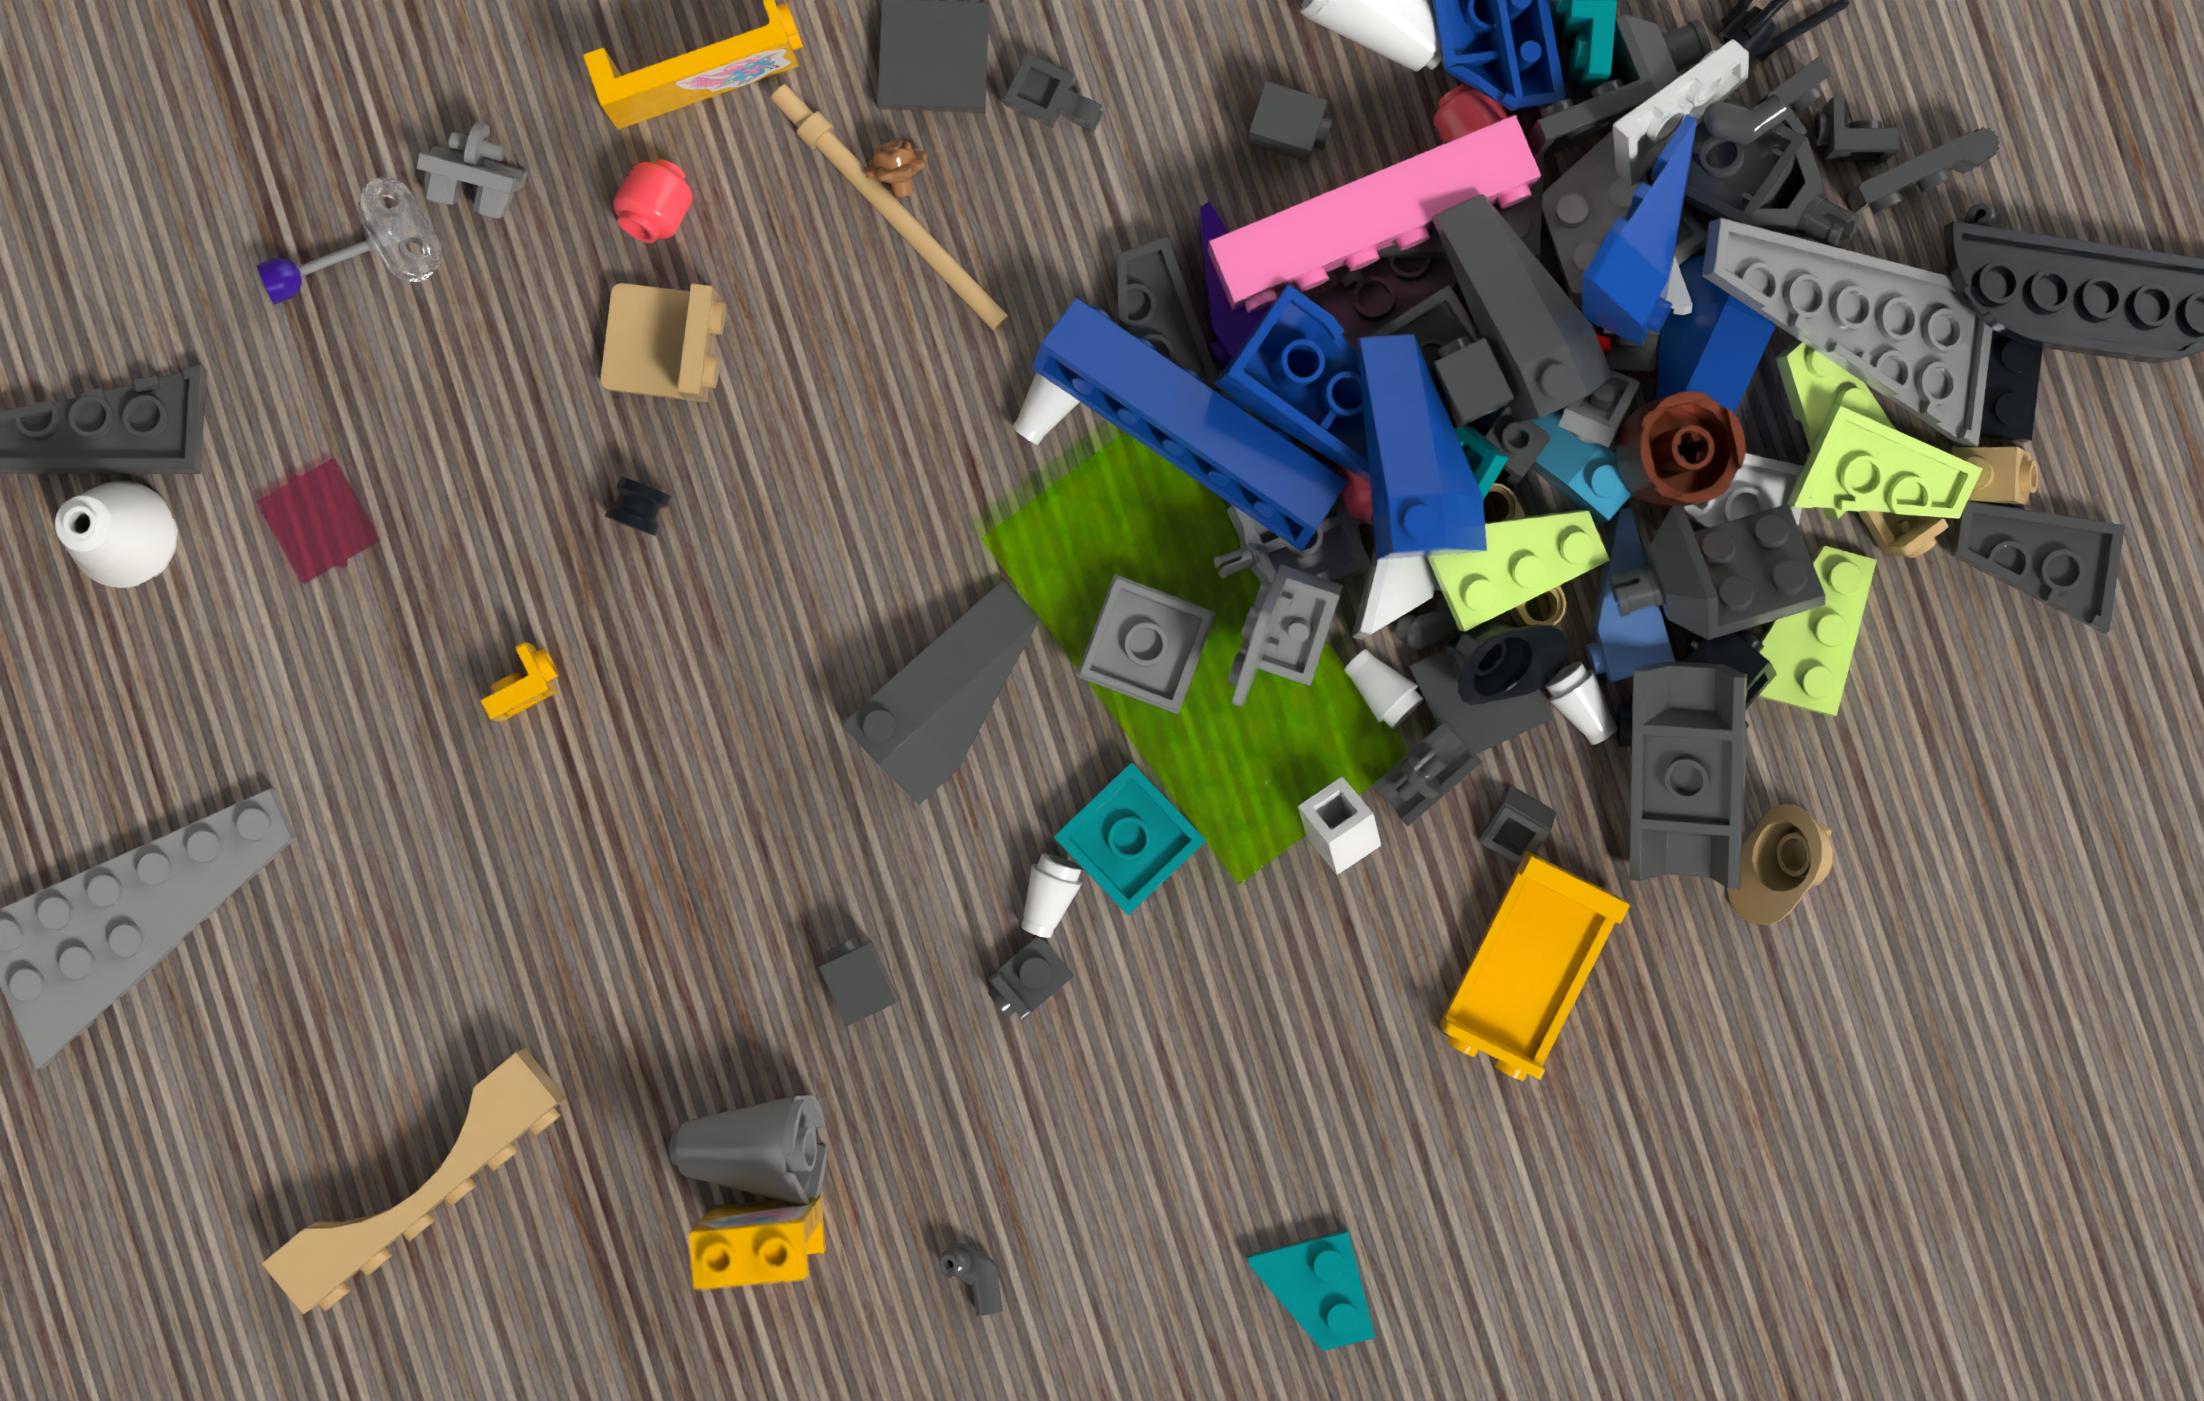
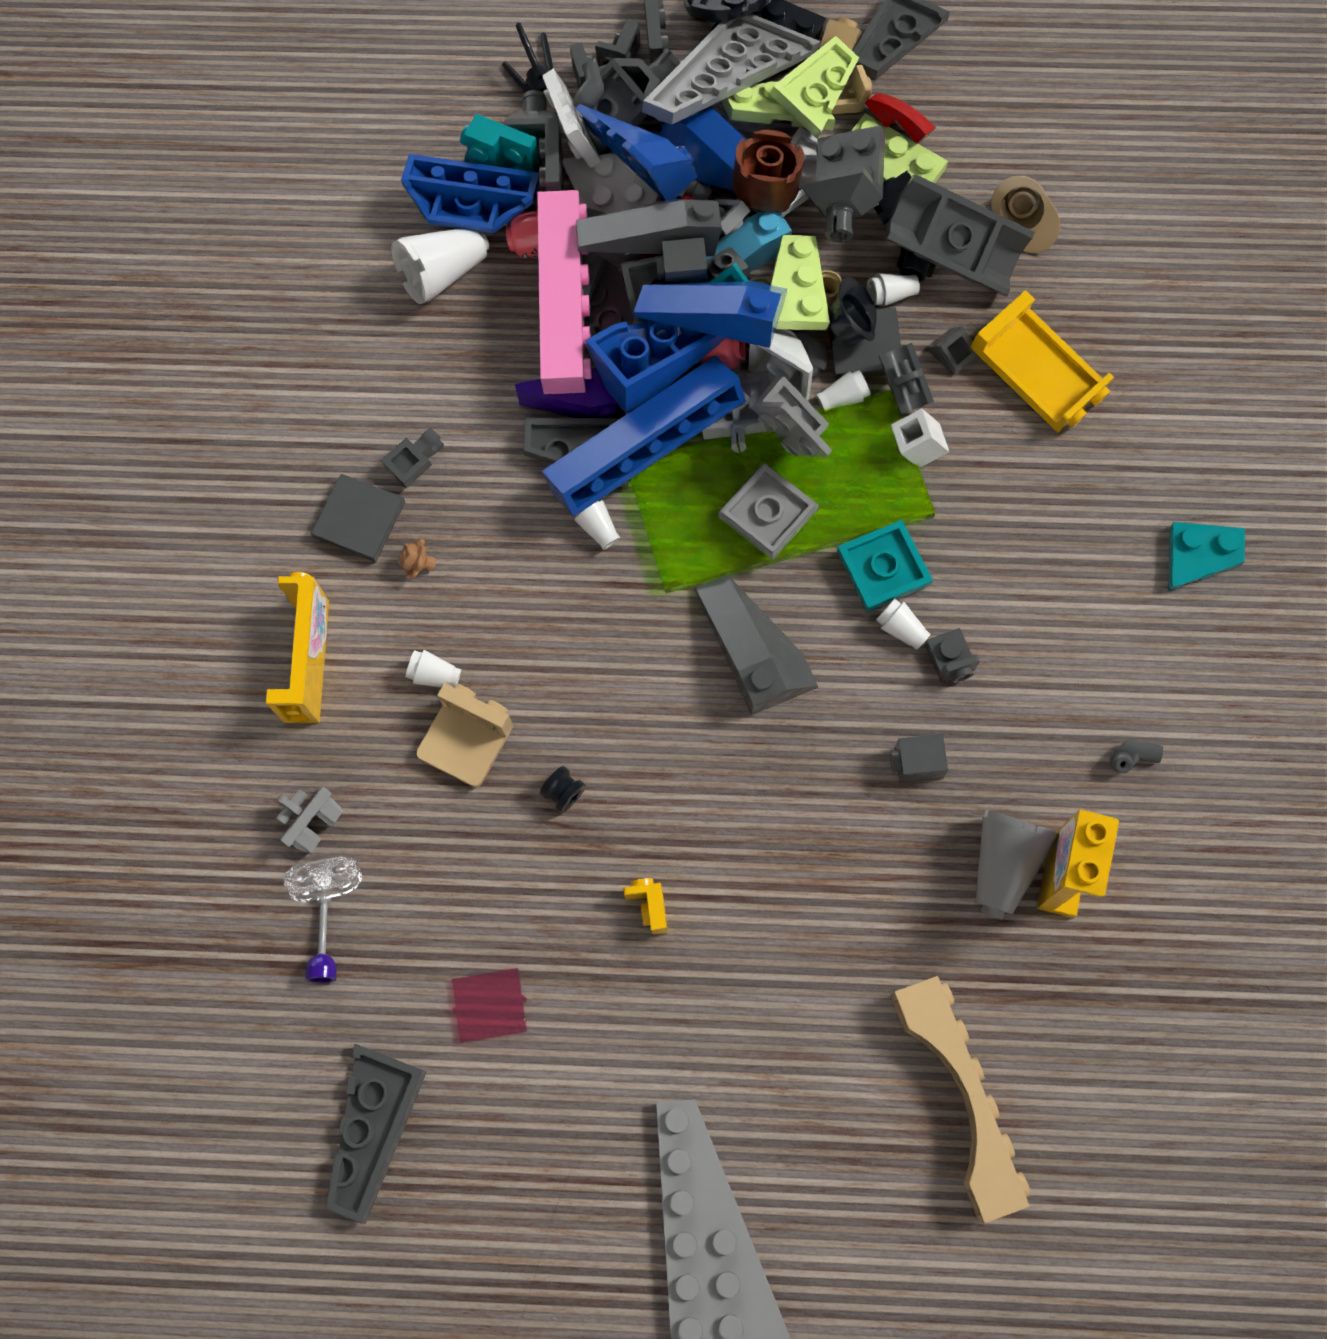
camera: 65 degrees left, 15 degrees down
(118, 533) = (458, 1144): white cone -> none
(652, 200) = (374, 711): coral head -> none
(741, 257) = (431, 670): none -> white cone
(817, 132) = (374, 600): tan bar -> none
(1289, 122) = (485, 331): dark grey brick -> none
(1631, 640) = (859, 257): medium blue slope -> none
(1893, 602) = (891, 109): none -> red slope

